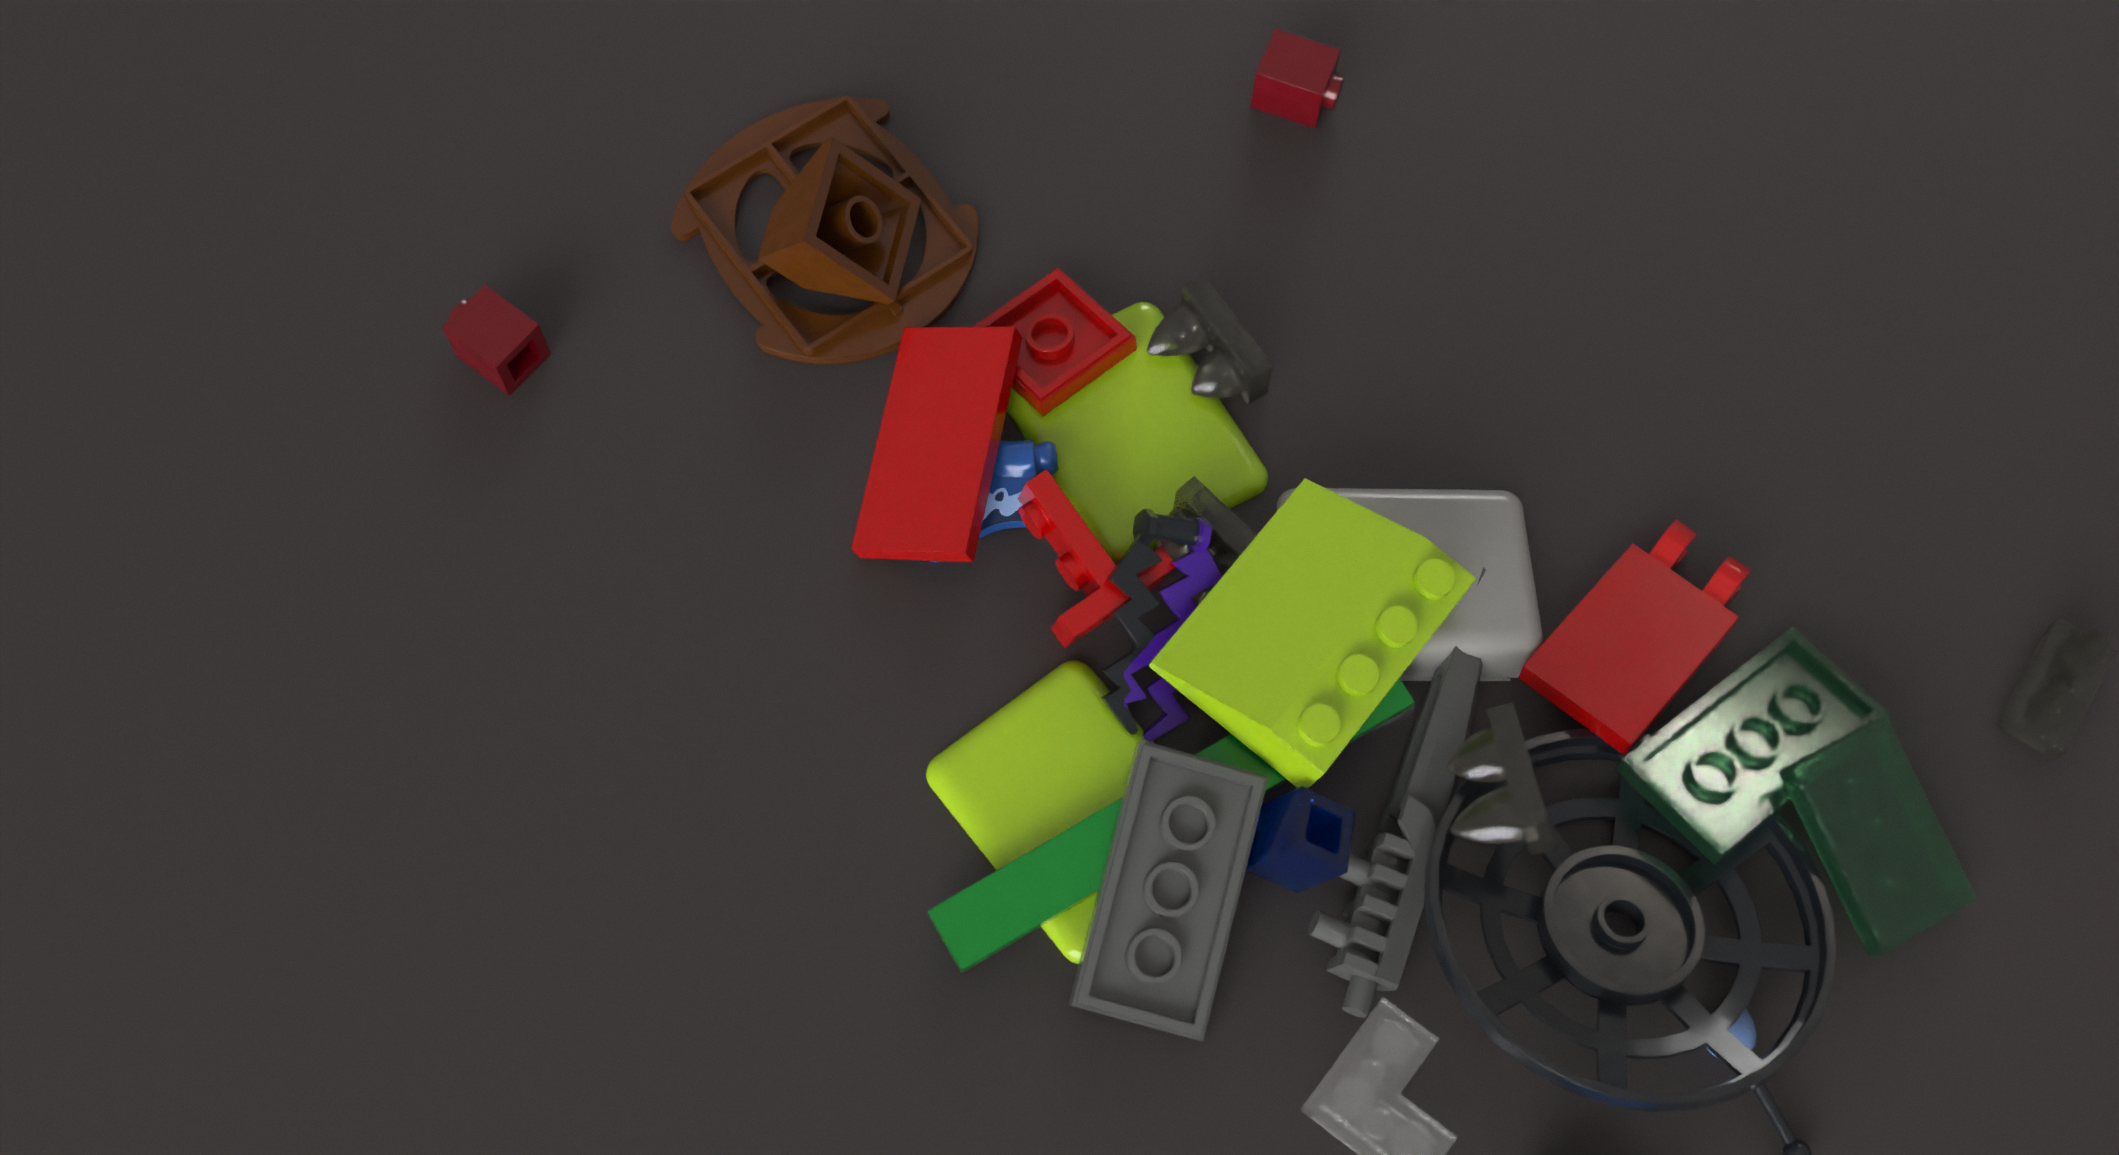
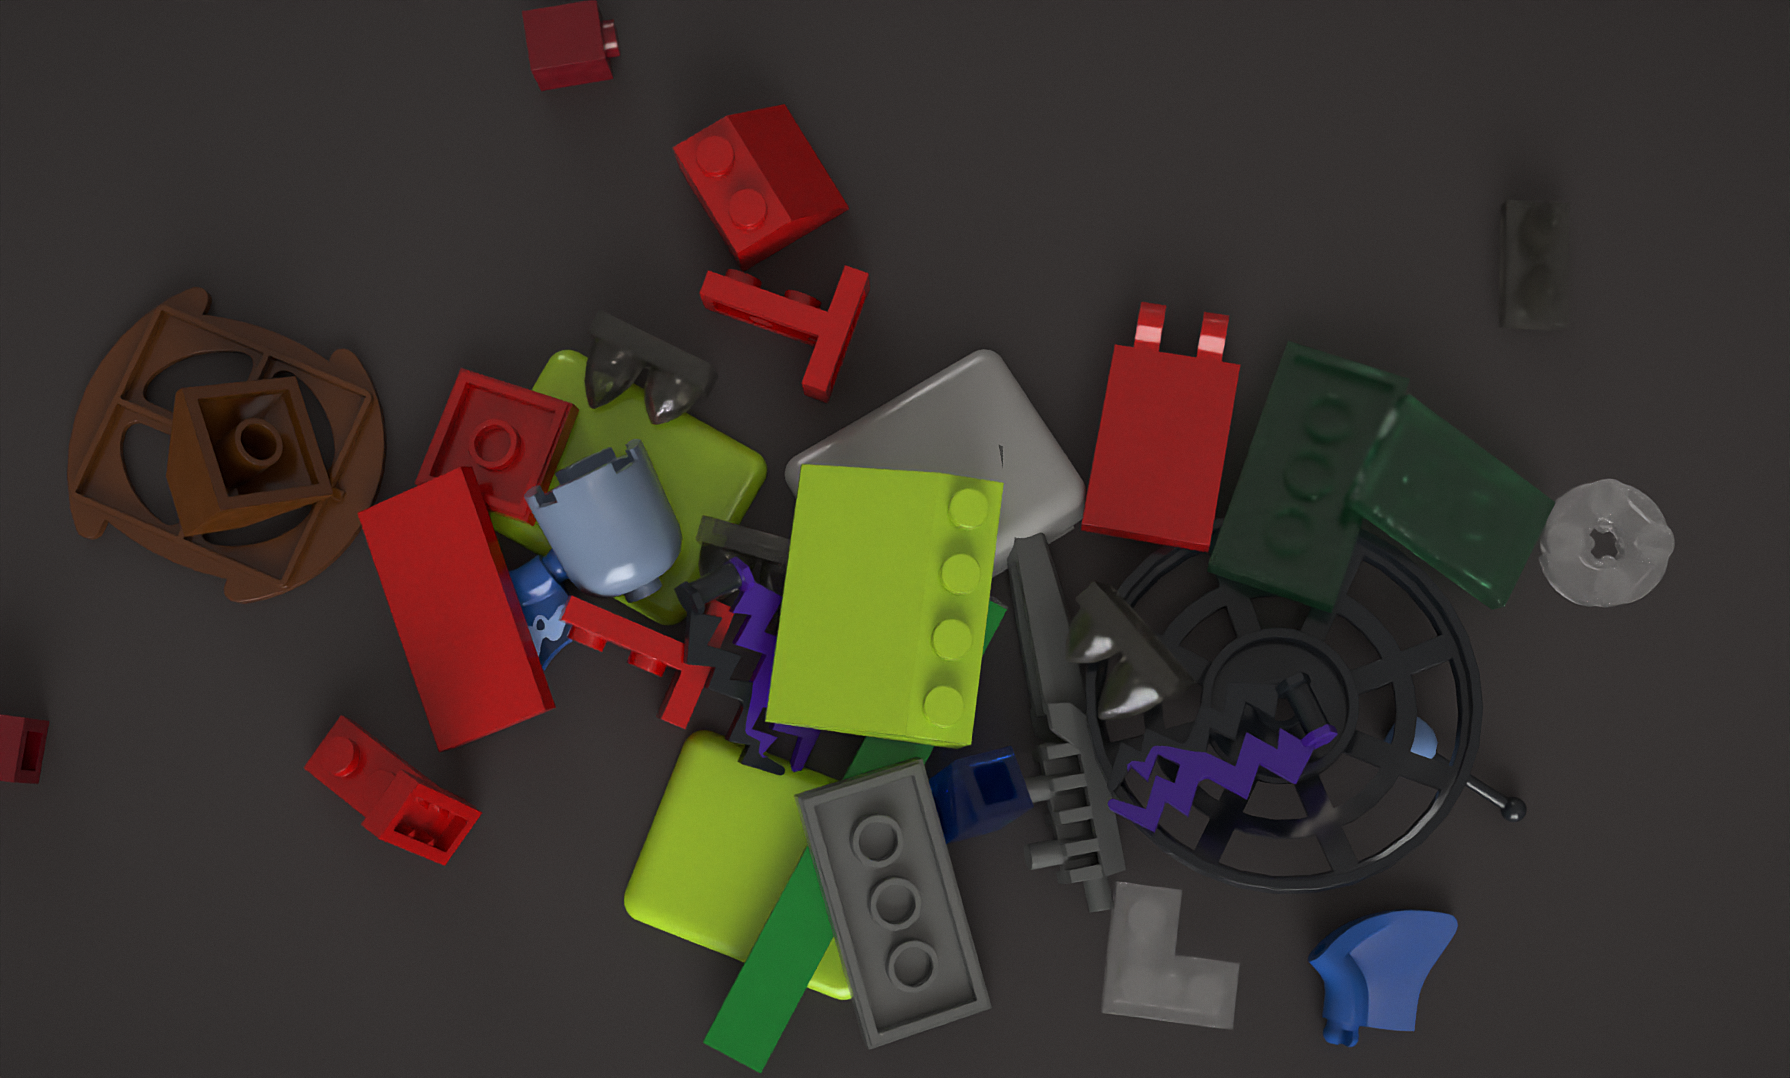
camera: 25 degrees left, 15 degrees up
(795, 558) = (391, 793): none -> red bracket
(1111, 438) = (610, 523): none -> sand blue cylinder
(1363, 376) = (796, 317): none -> red bracket
(1390, 258) = (758, 182): none -> red slope
(1521, 914) = (1195, 762): none -> piece
(2028, 931) = (1641, 536): none -> clear plate

